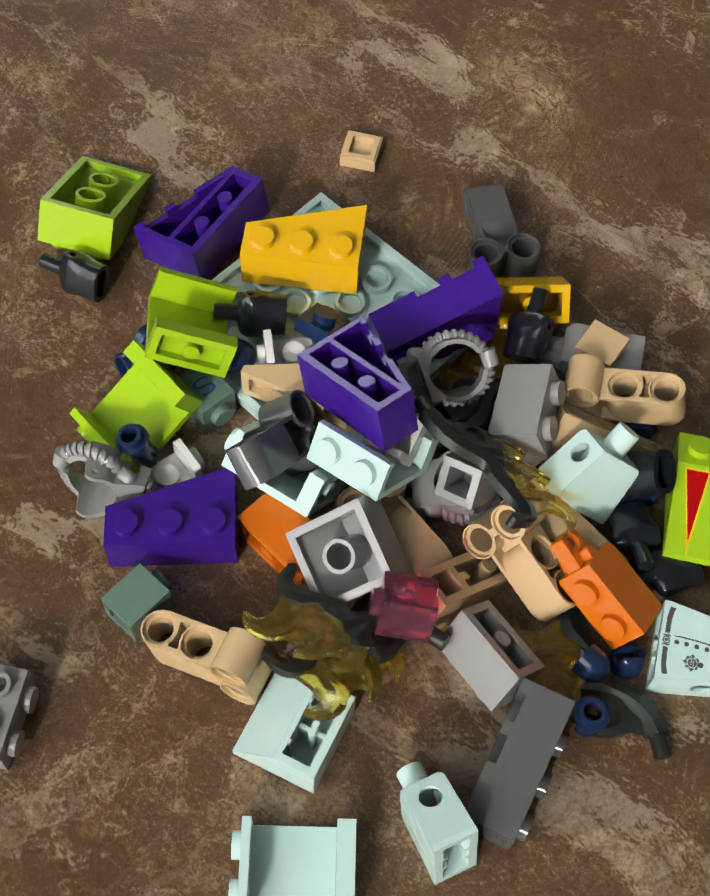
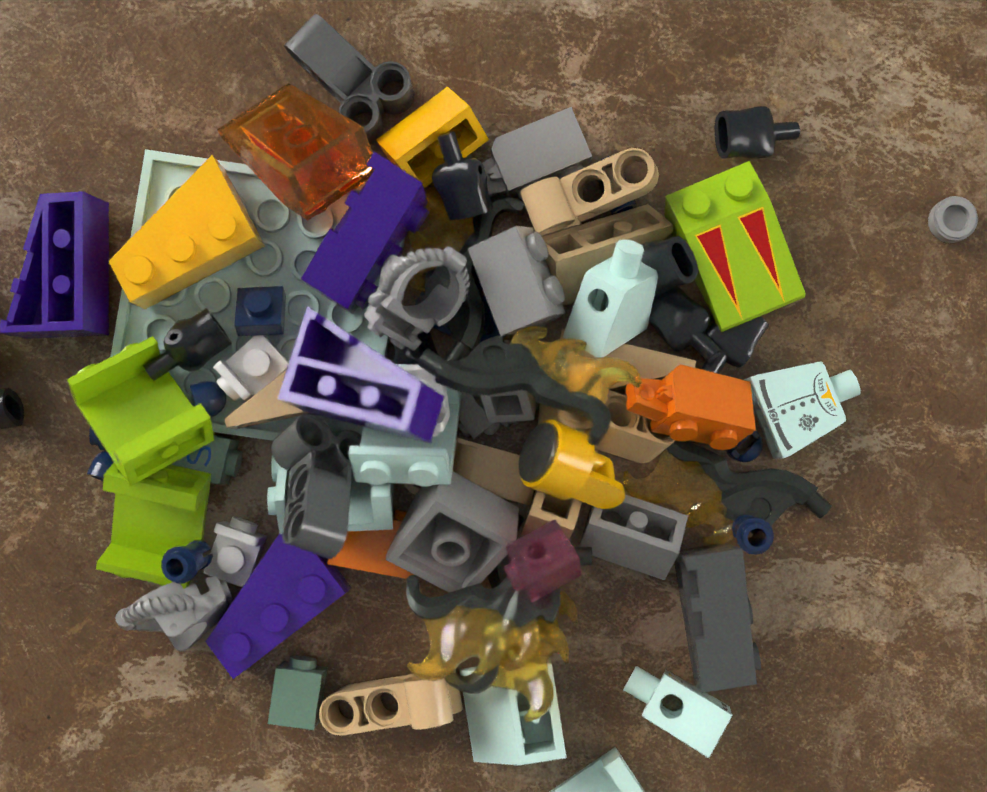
camera: 30 degrees left, 25 degrees up
(361, 151) = (145, 62): tan tile -> none
(426, 248) = (300, 149): none -> clear orange slope
(471, 550) = (566, 466): none -> yellow piece
(593, 665) = (723, 480): dark blue hinge -> none
(602, 342) = (538, 151): tan tile -> none

